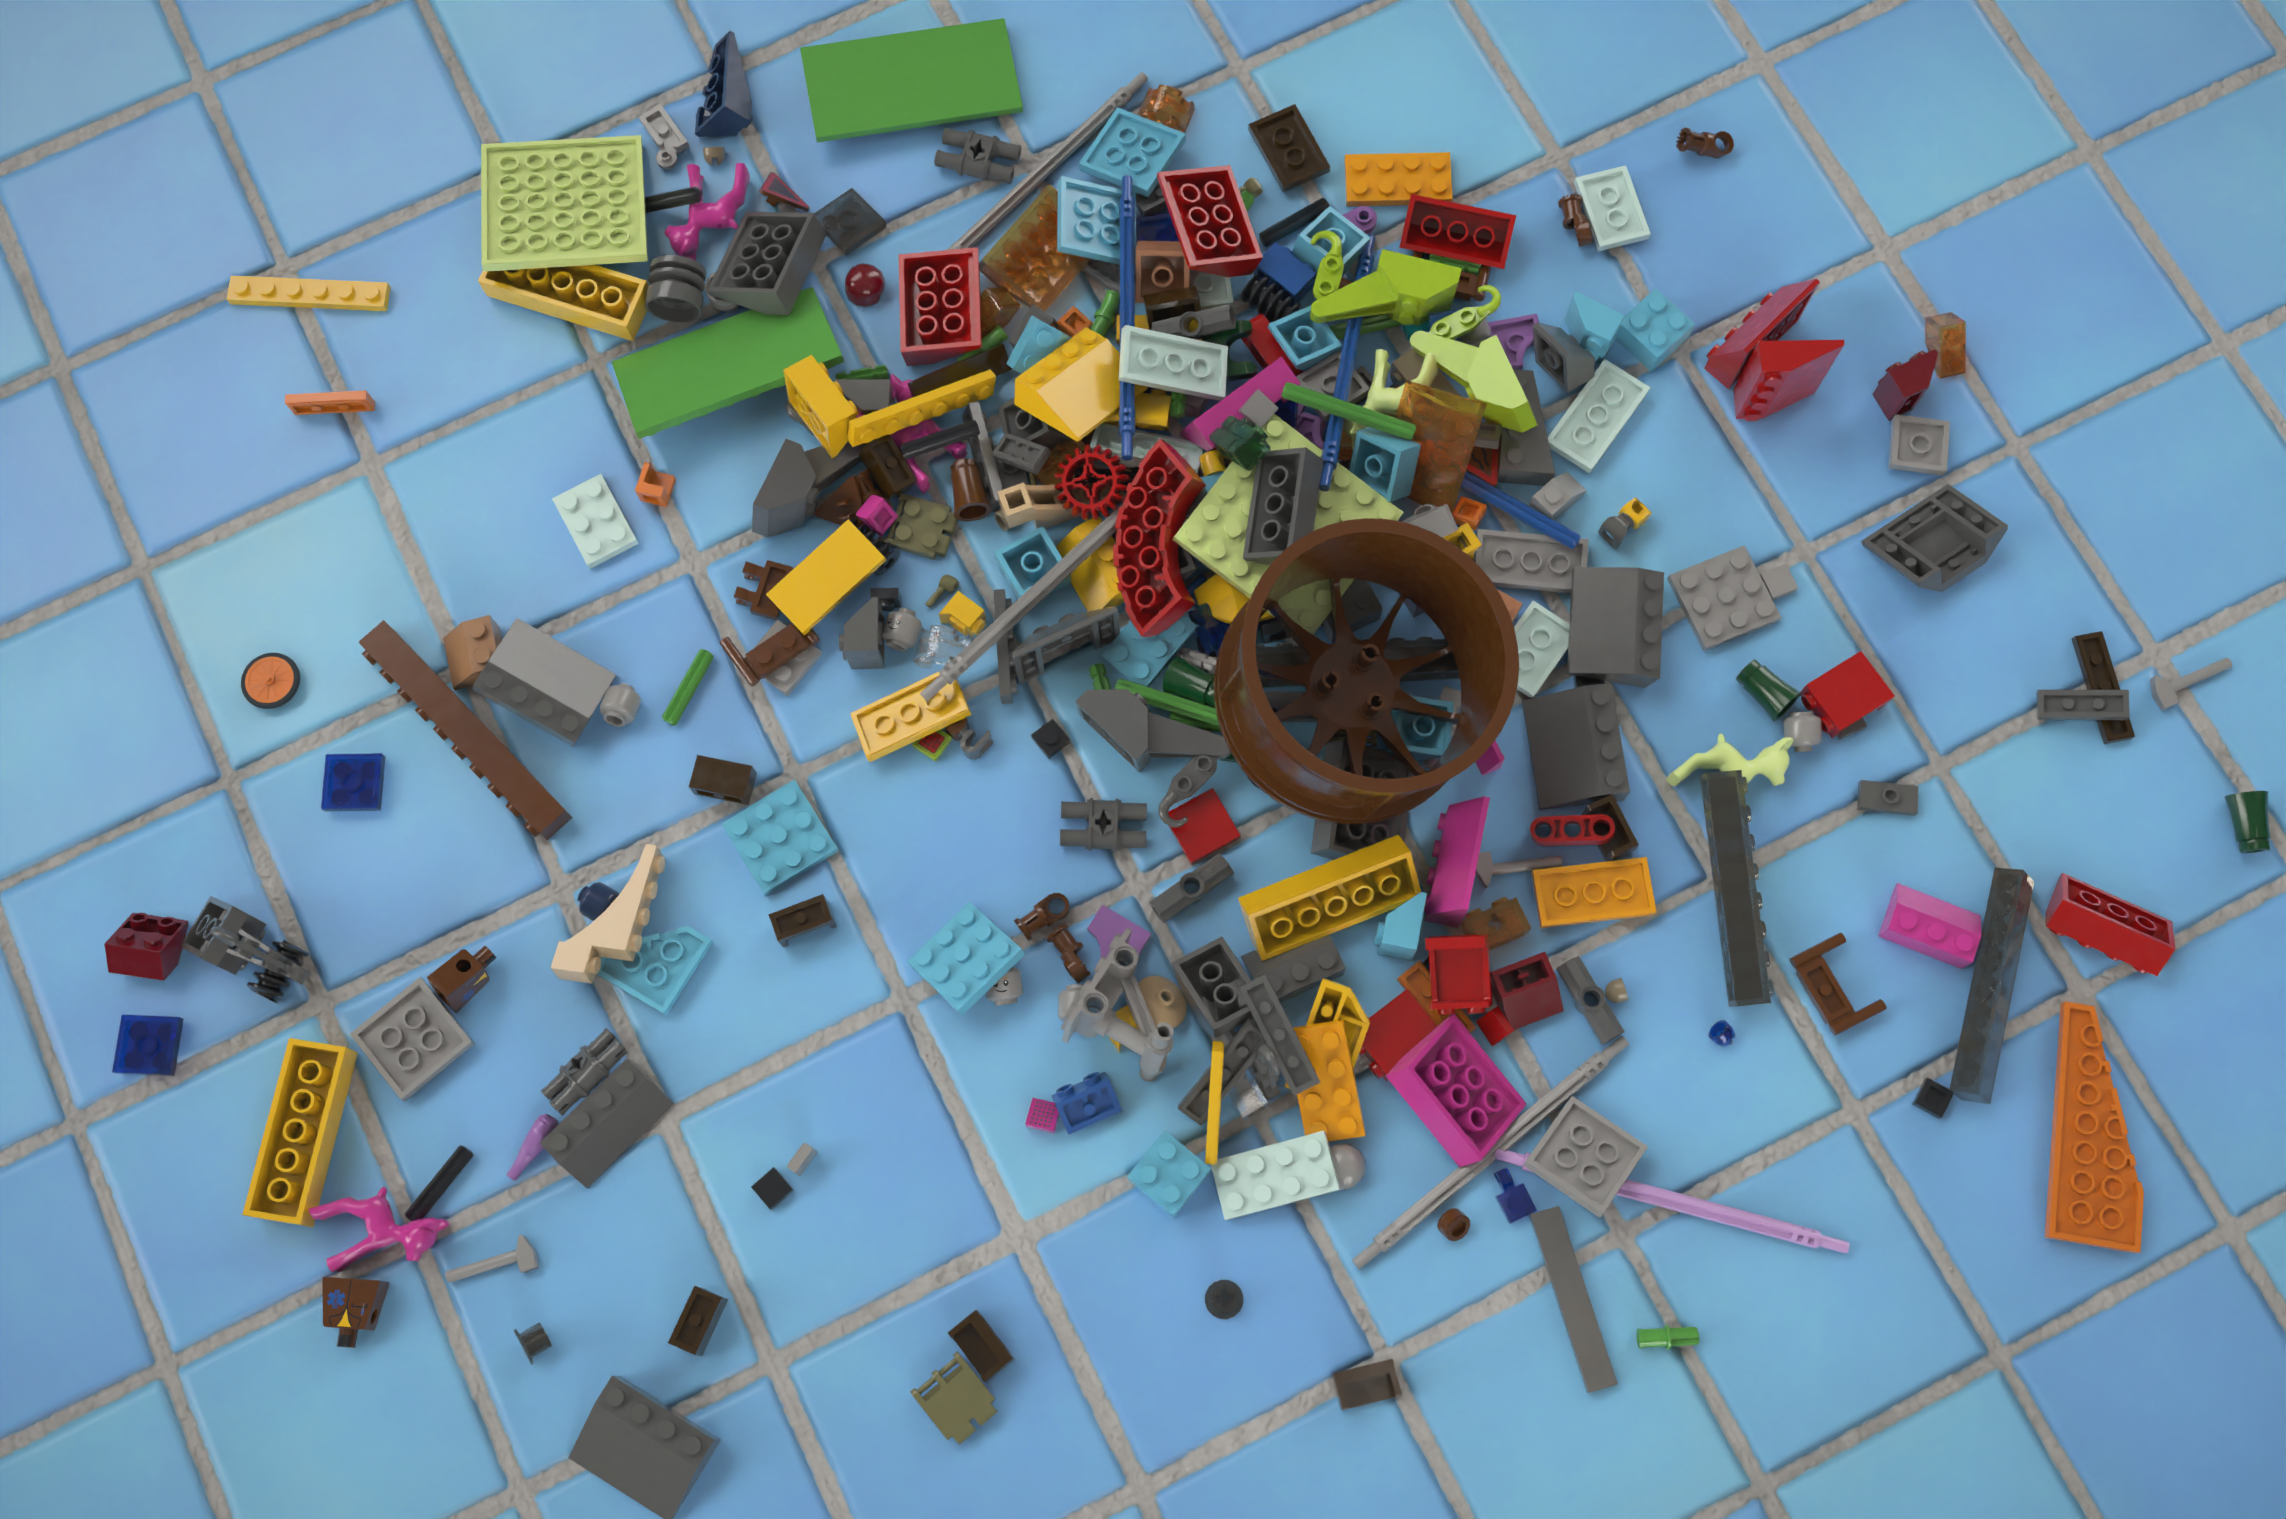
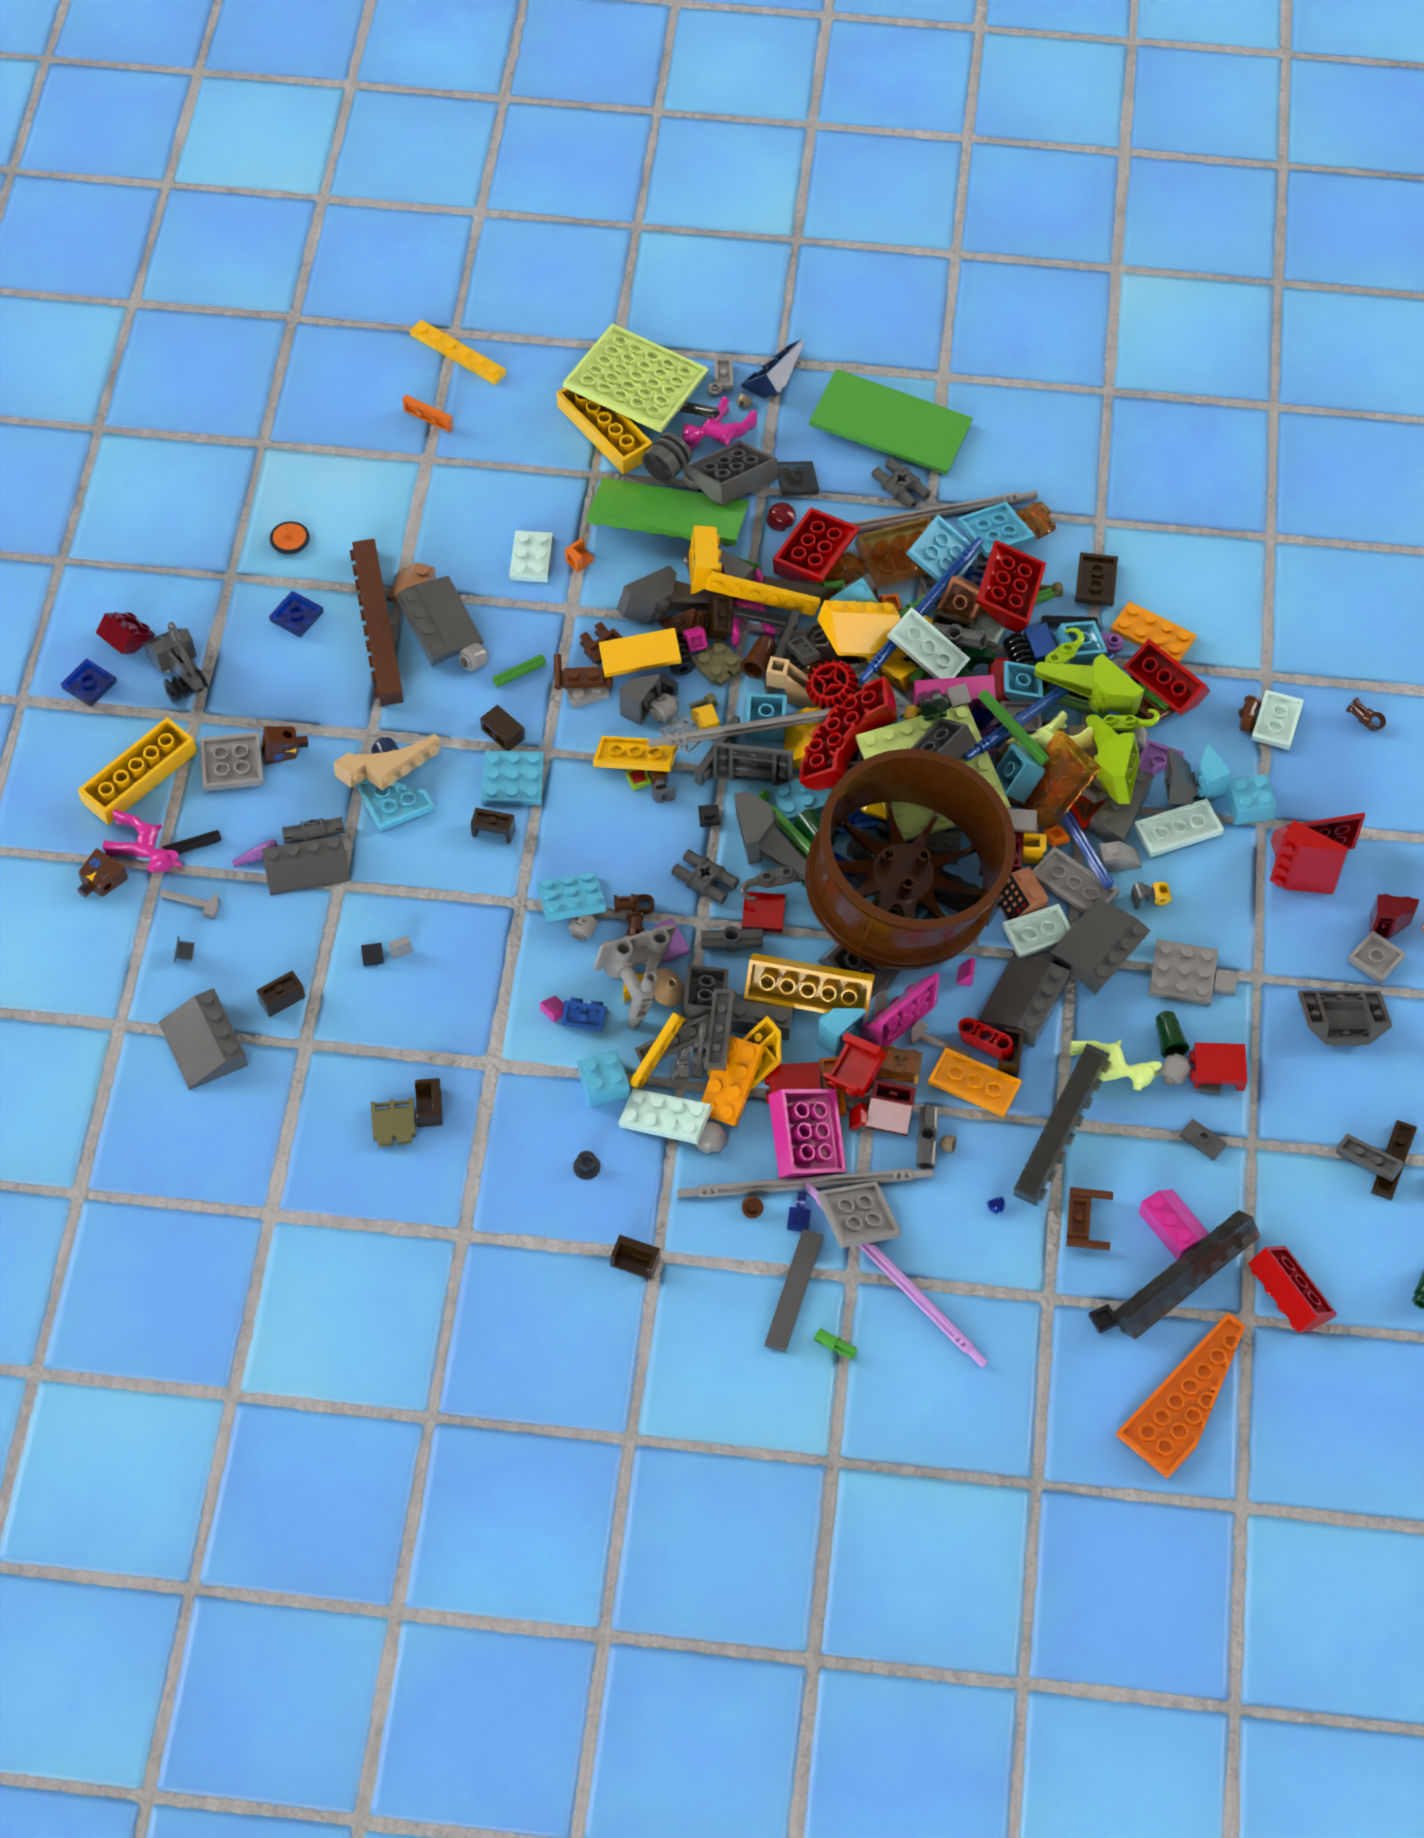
camera: 30 degrees right, 15 degrees down
(779, 191) = (767, 439): piece -> none

